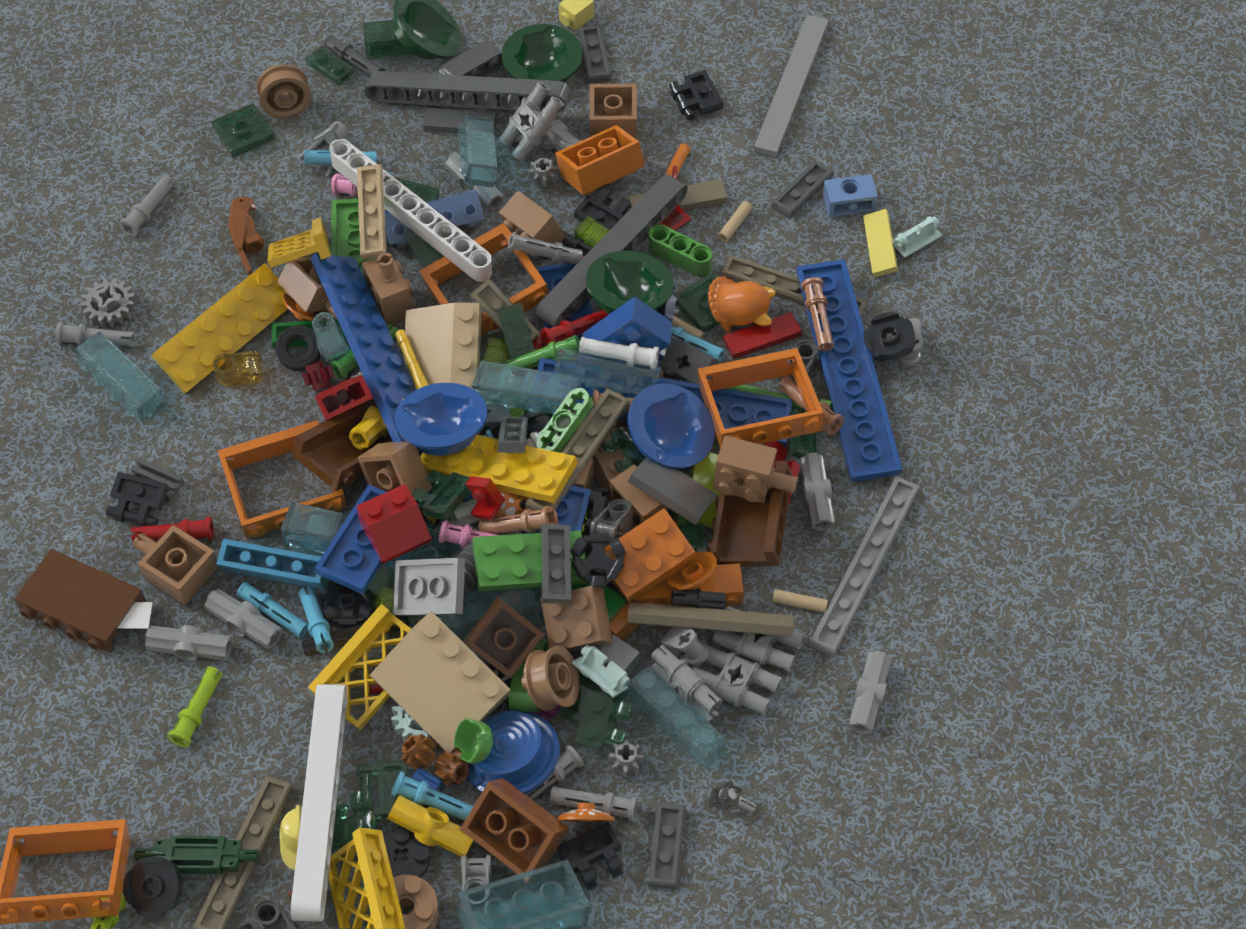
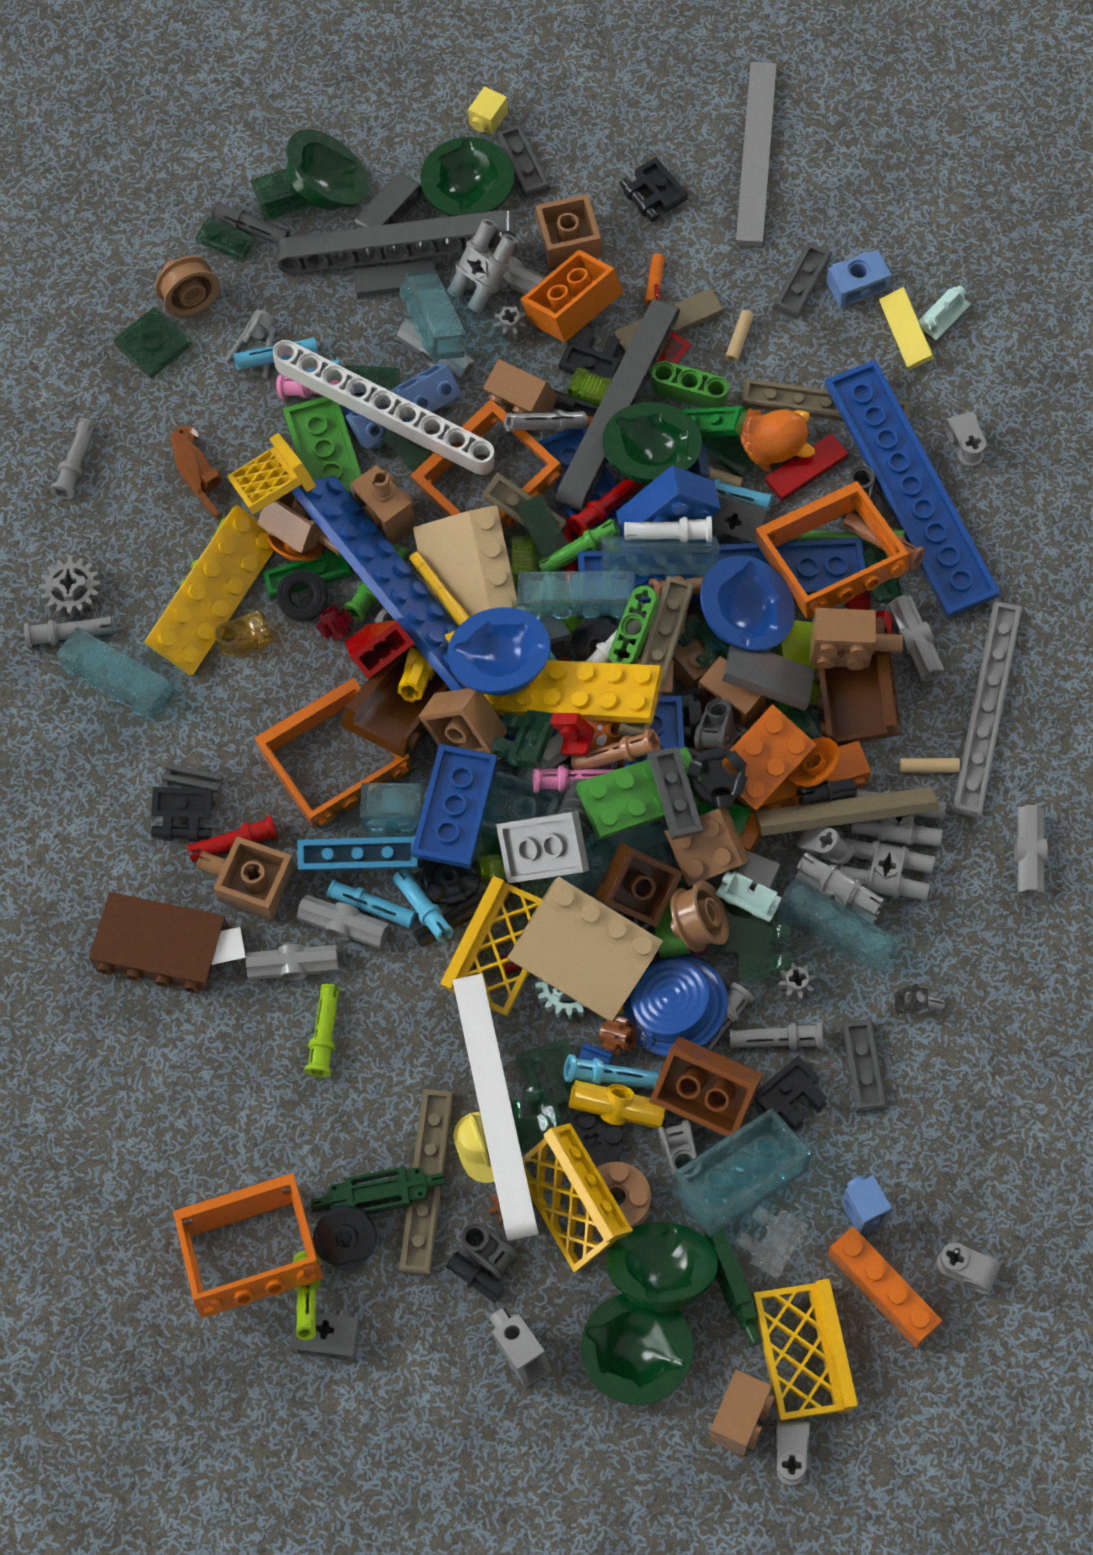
camera: 10 degrees left, 10 degrees up
(329, 337) = (337, 579): clear light blue piece -> none
(371, 211) = (344, 421): tan tile -> none
(393, 523) = (484, 785): red slope -> none
(418, 751) = (580, 1027): dark orange gear -> none
(474, 740) = (639, 1004): bright green hair -> none
(513, 434) = (581, 653): dark grey tile -> none
(586, 812) = (775, 1054): orange dish -> none
(693, 279) = (718, 420): none -> green tile
(817, 305) = (857, 422): nougat pin -> none
(894, 348) = (946, 458): black plate -> none

